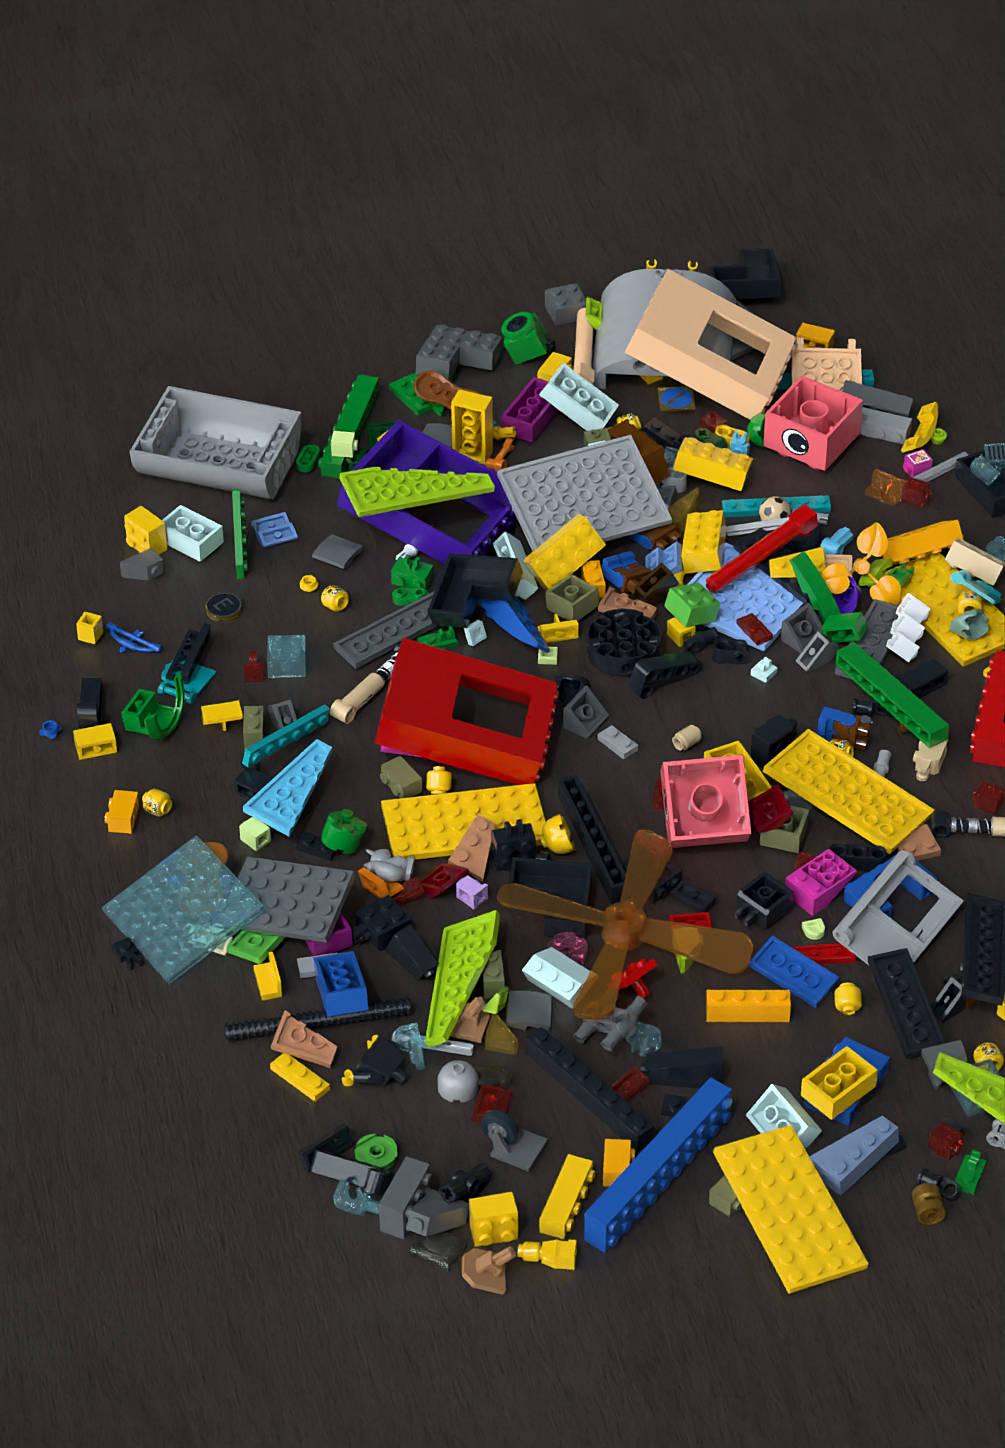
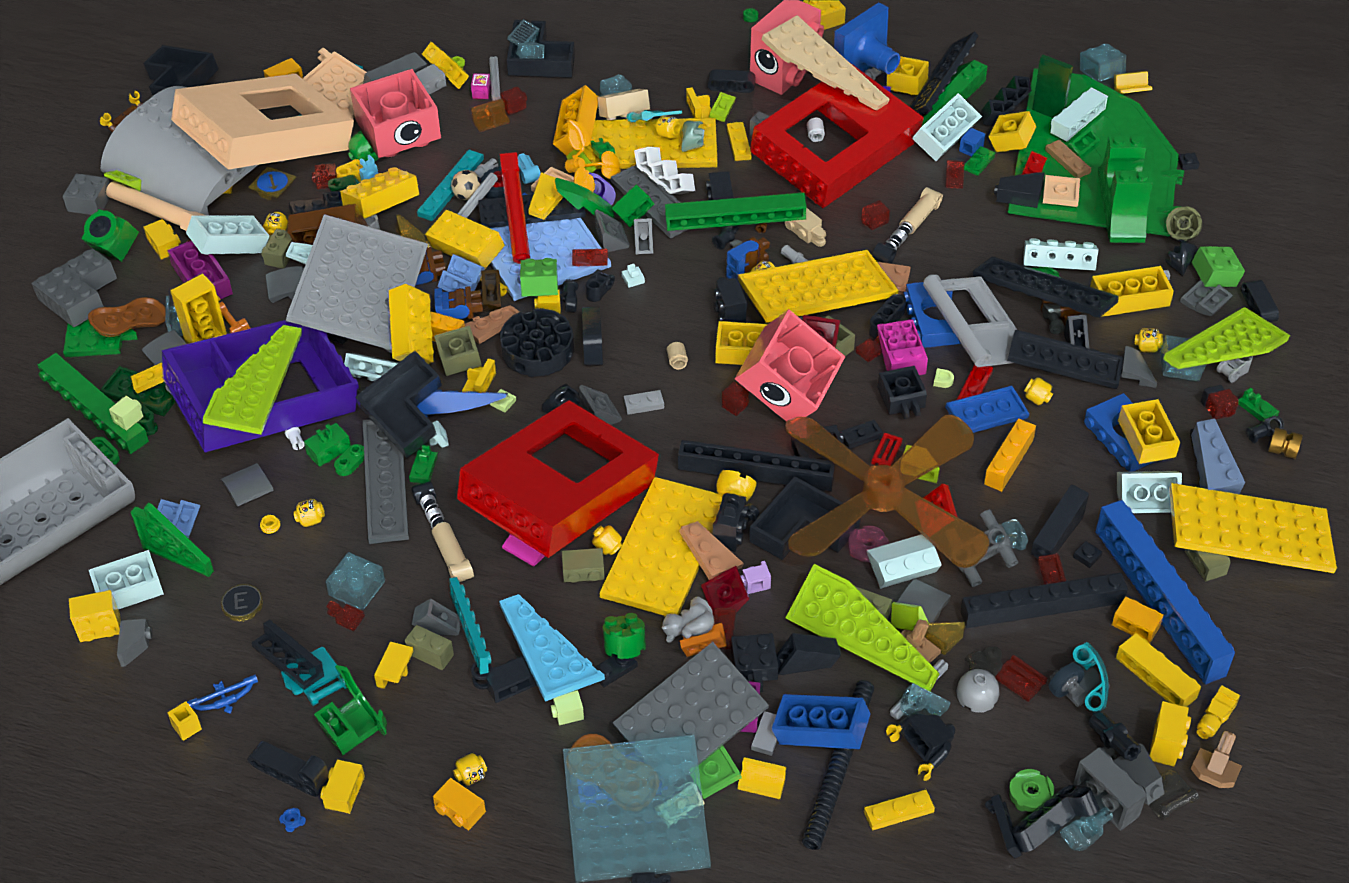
camera: 60 degrees left, 5 degrees up
(299, 1041) = (865, 787): nougat wing -> none
(532, 1145) = (1088, 657): none -> teal panel

